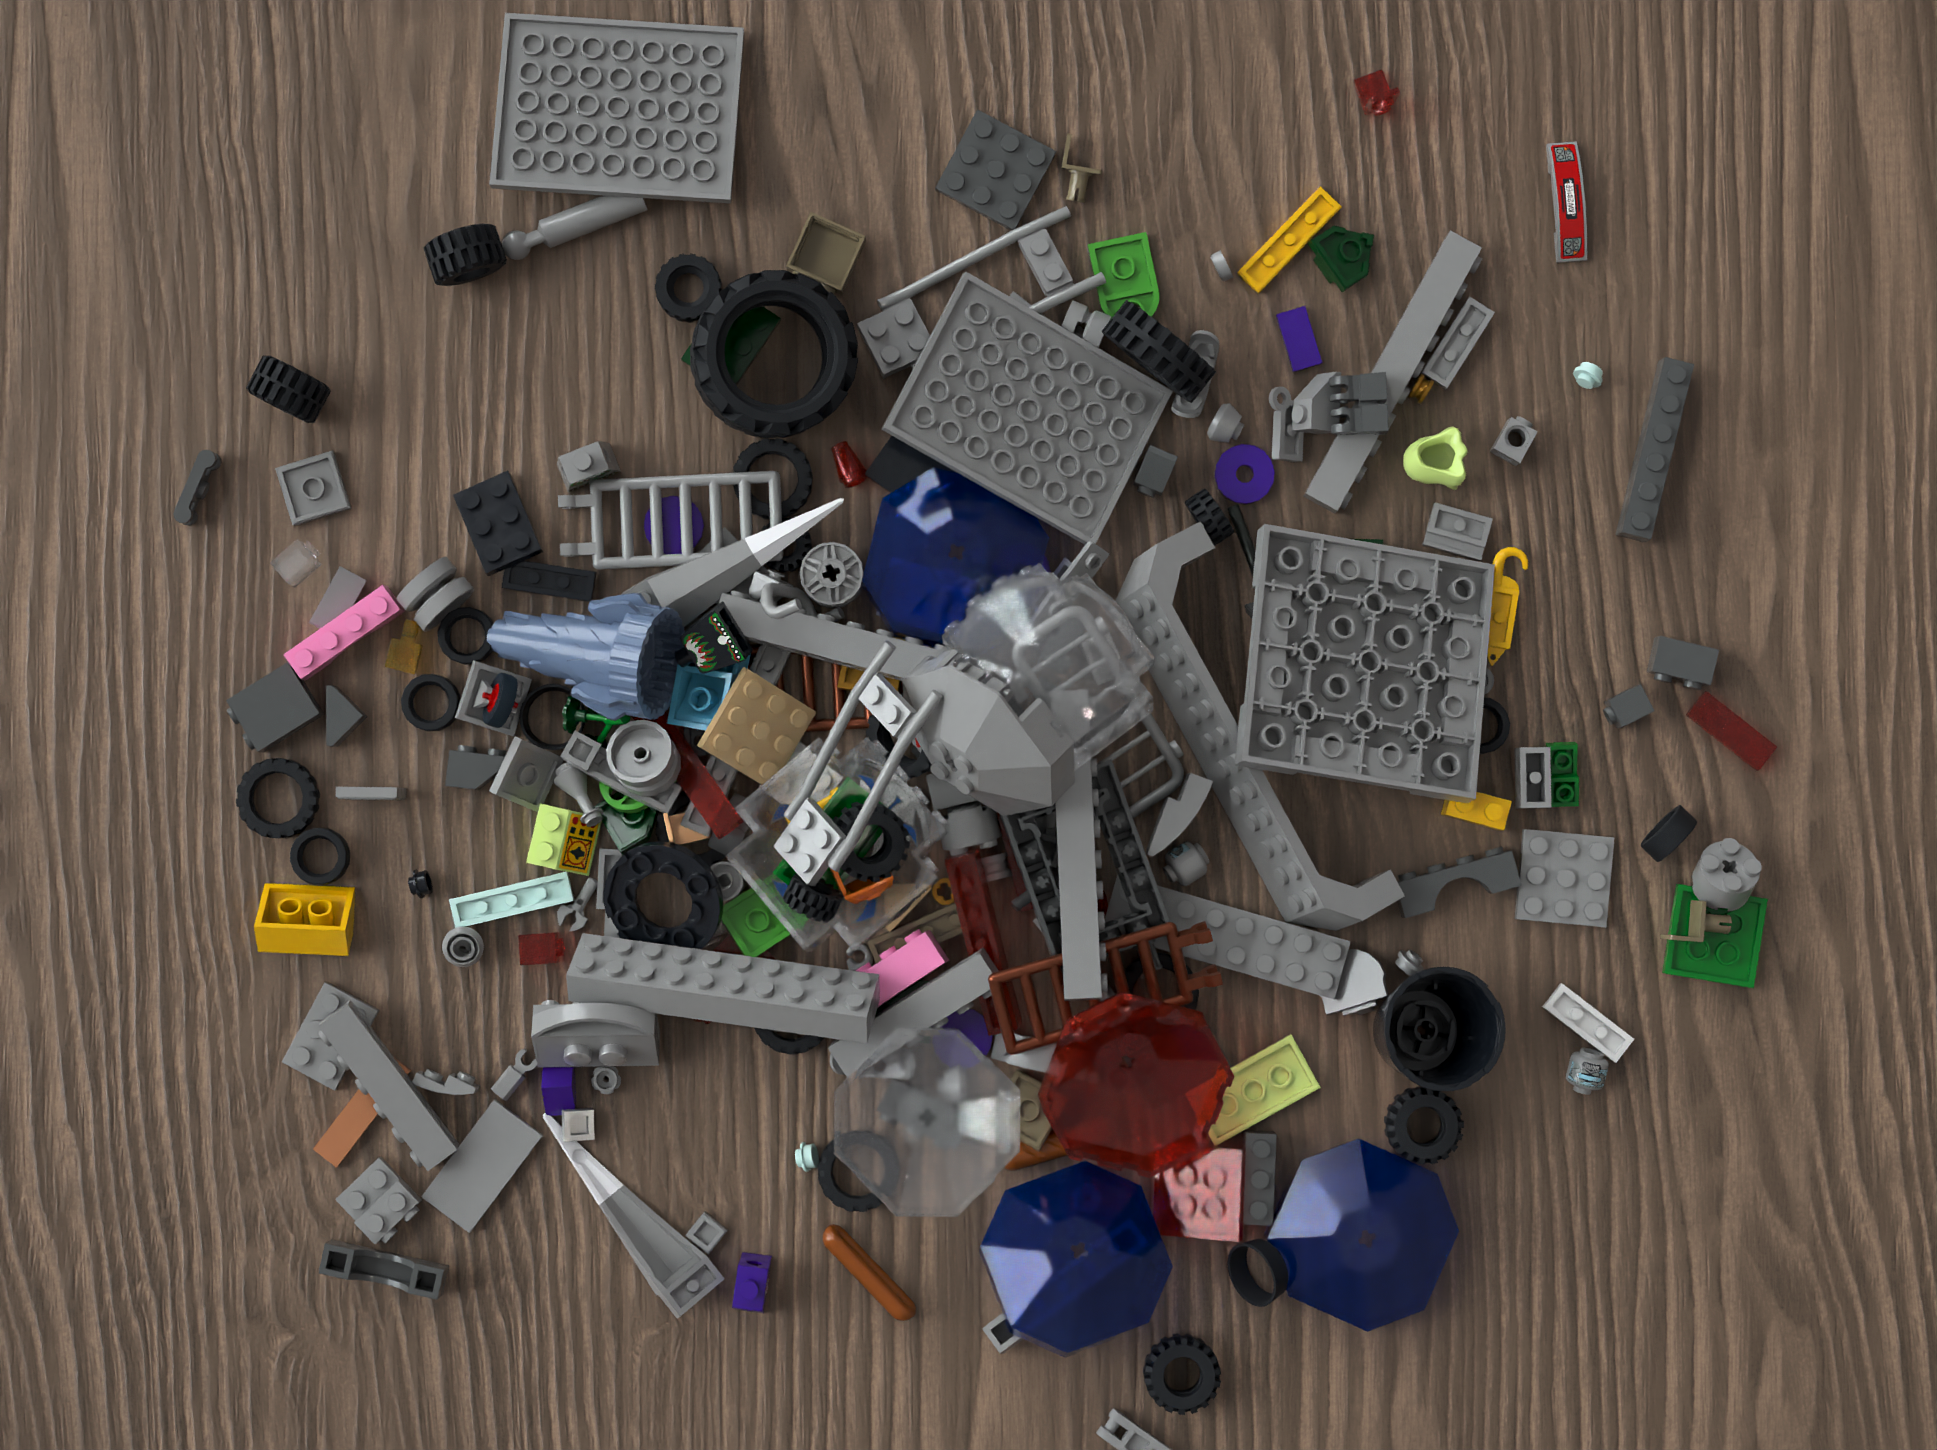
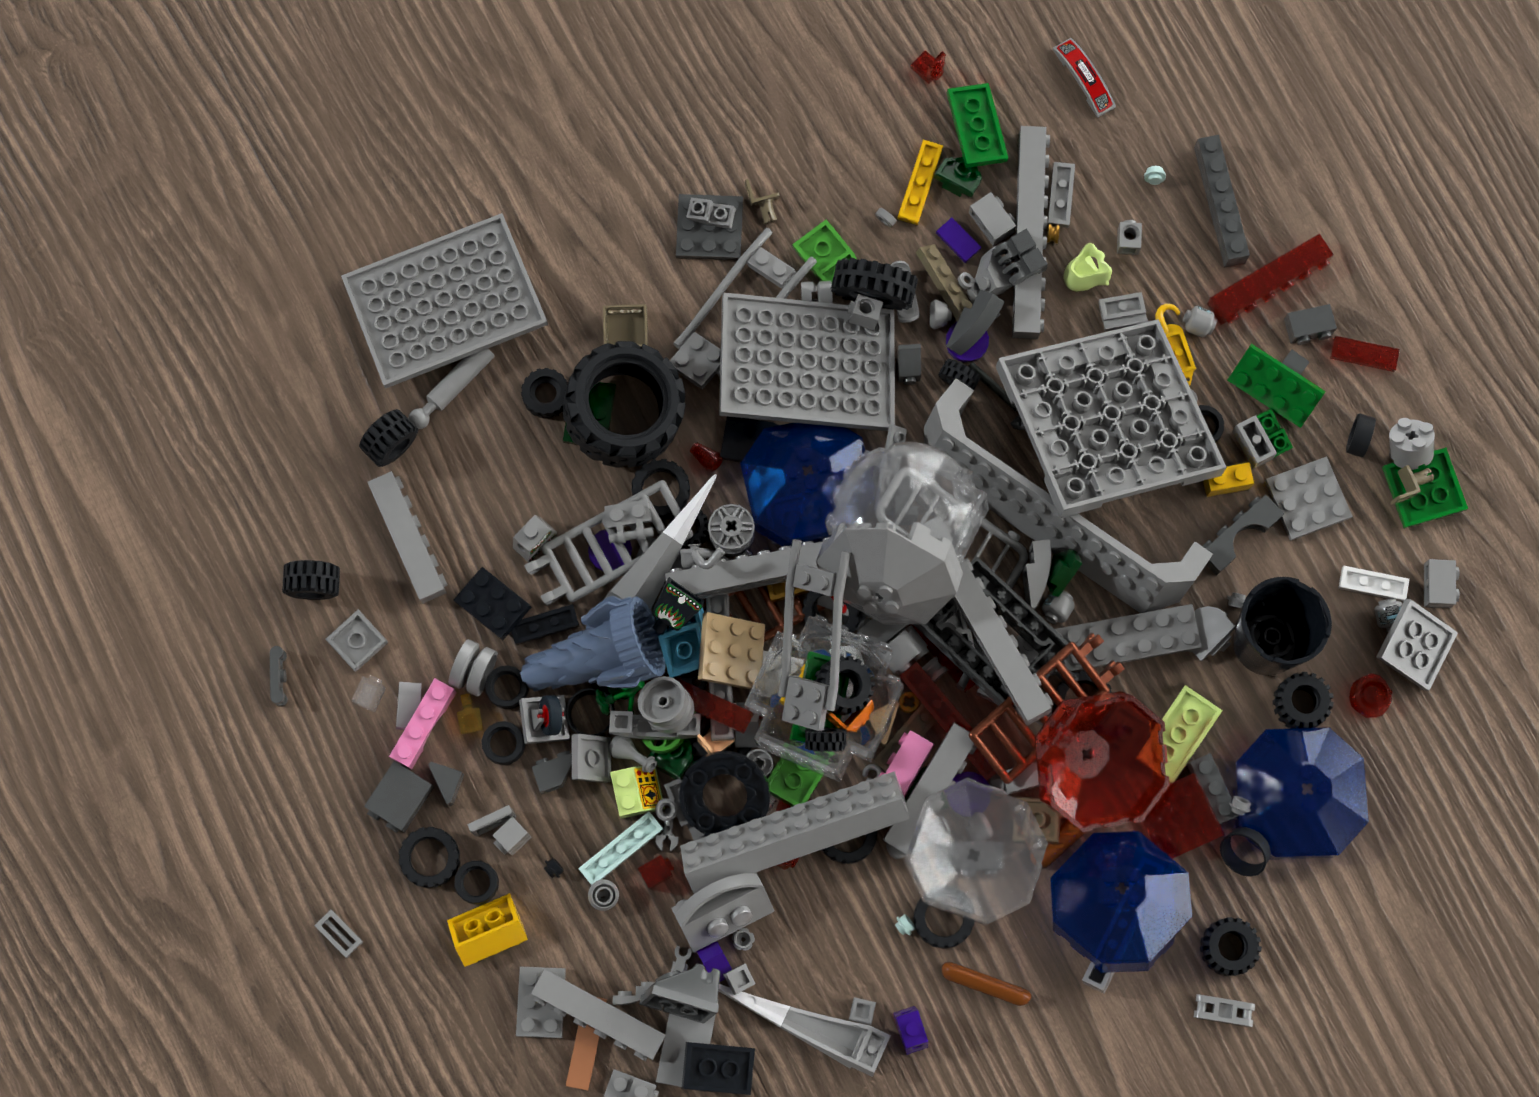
camera: 25 degrees left, 10 degrees down
(109, 817) = (352, 947): none -> light grey tile
(385, 823) = (511, 837): none -> light grey brick
(433, 389) = (407, 538): none -> light grey brick
(501, 1218) = (718, 1068): none -> black plate
(503, 1115) = (685, 994): none -> dark grey piece
(578, 880) = (659, 809): none -> light grey plate
(713, 495) = (626, 515): none -> light grey plate
(1004, 155) = (710, 213): none -> light grey slope
(1144, 379) = (870, 305): none -> light grey brick
(1211, 824) = (1062, 570): none -> dark green plate
(1254, 388) = (944, 279): none -> dark tan plate
(1262, 458) = (974, 322): none -> dark grey slope
(1278, 1216) = (1240, 805): none -> light grey plate
(1355, 333) = (992, 218): none -> light grey brick
(1396, 201) = (977, 125): none -> green plate
(1511, 1156) = (1370, 696): none -> clear red hat
(1546, 591) = (1199, 321): none -> light grey head
(1597, 720) = (1276, 385): none -> green plate
(1599, 1125) = (1417, 644): none -> light grey plate
(1663, 580) = (1270, 279): none -> clear red brick
(1670, 1063) = (1440, 583): none -> light grey brick

